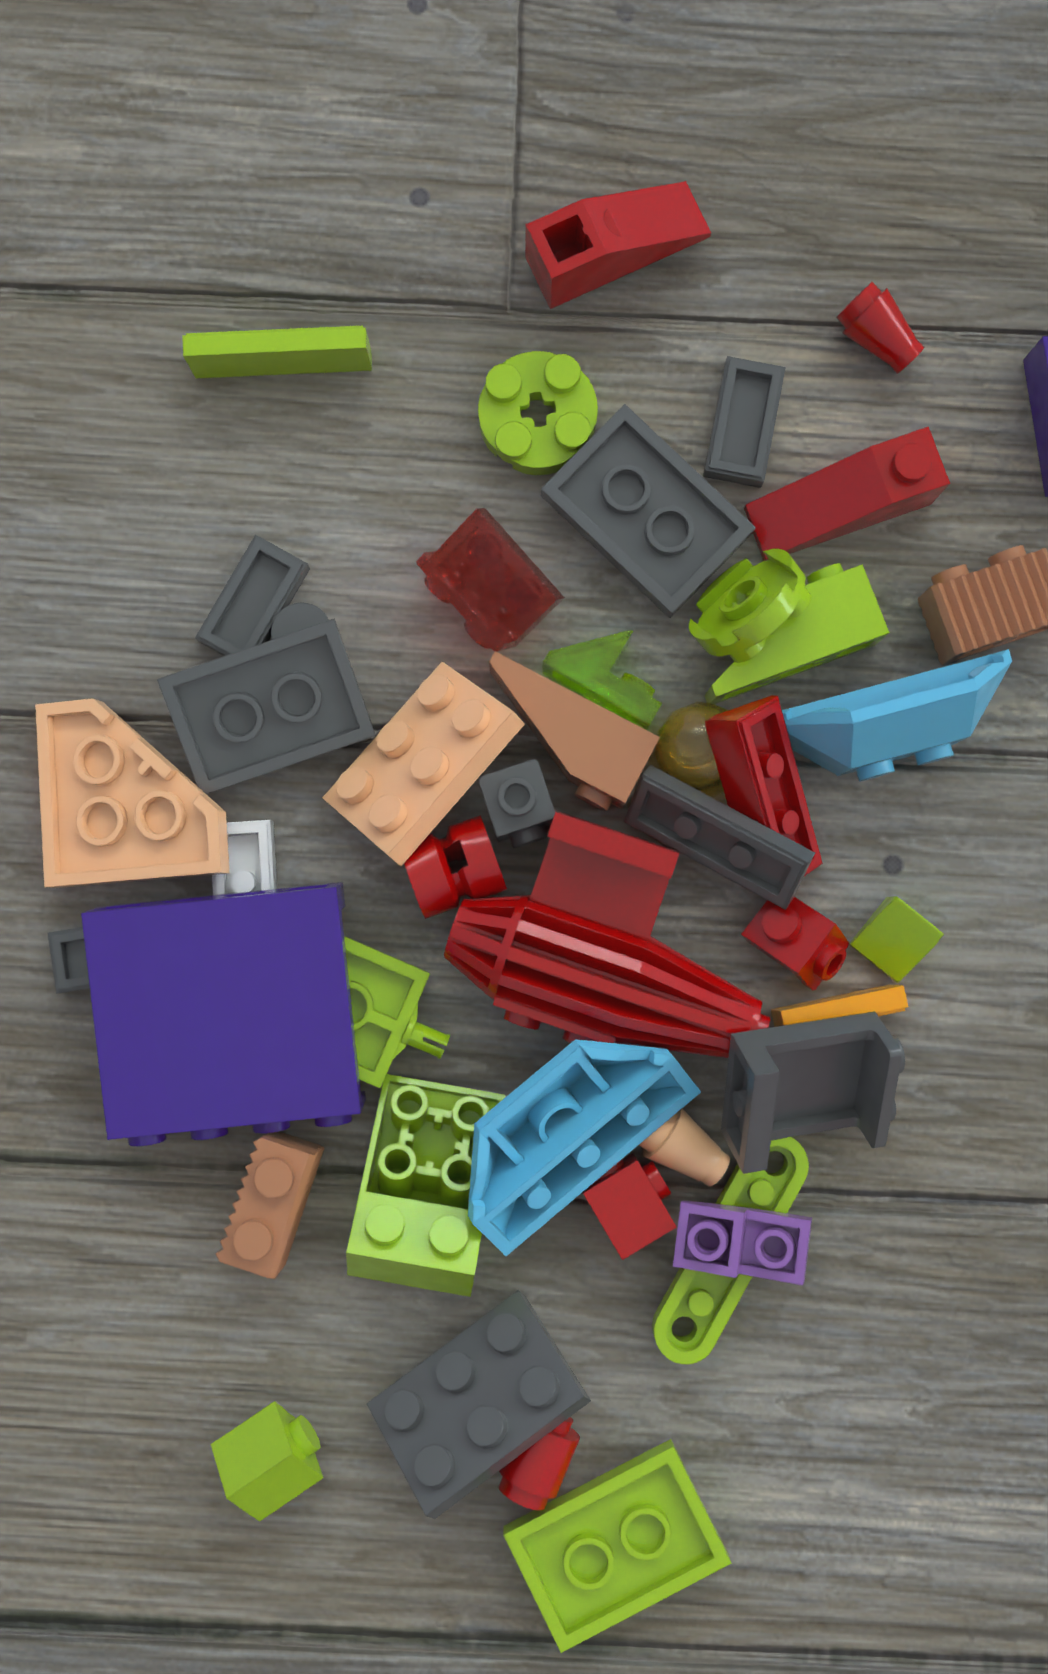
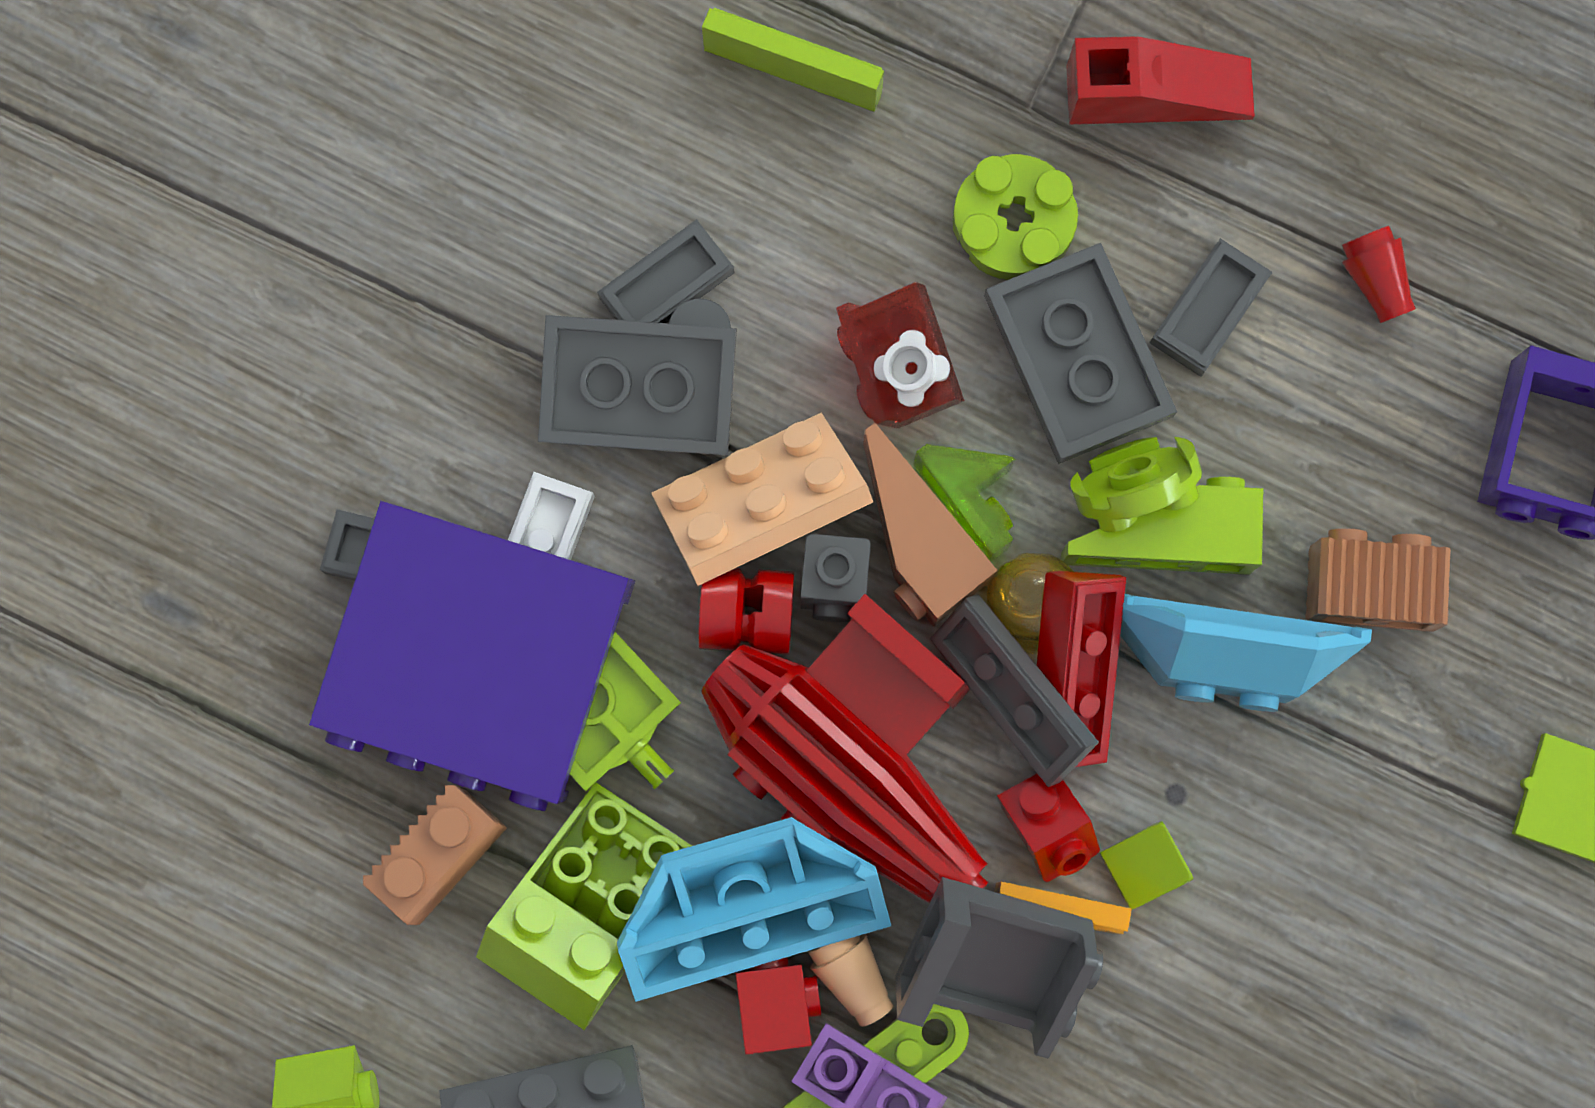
camera: 25 degrees right, 5 degrees down
(118, 804) = (457, 417): light nougat plate -> none
(496, 573) = (893, 365): none -> white plate
(850, 494) = (1282, 419): red slope -> none

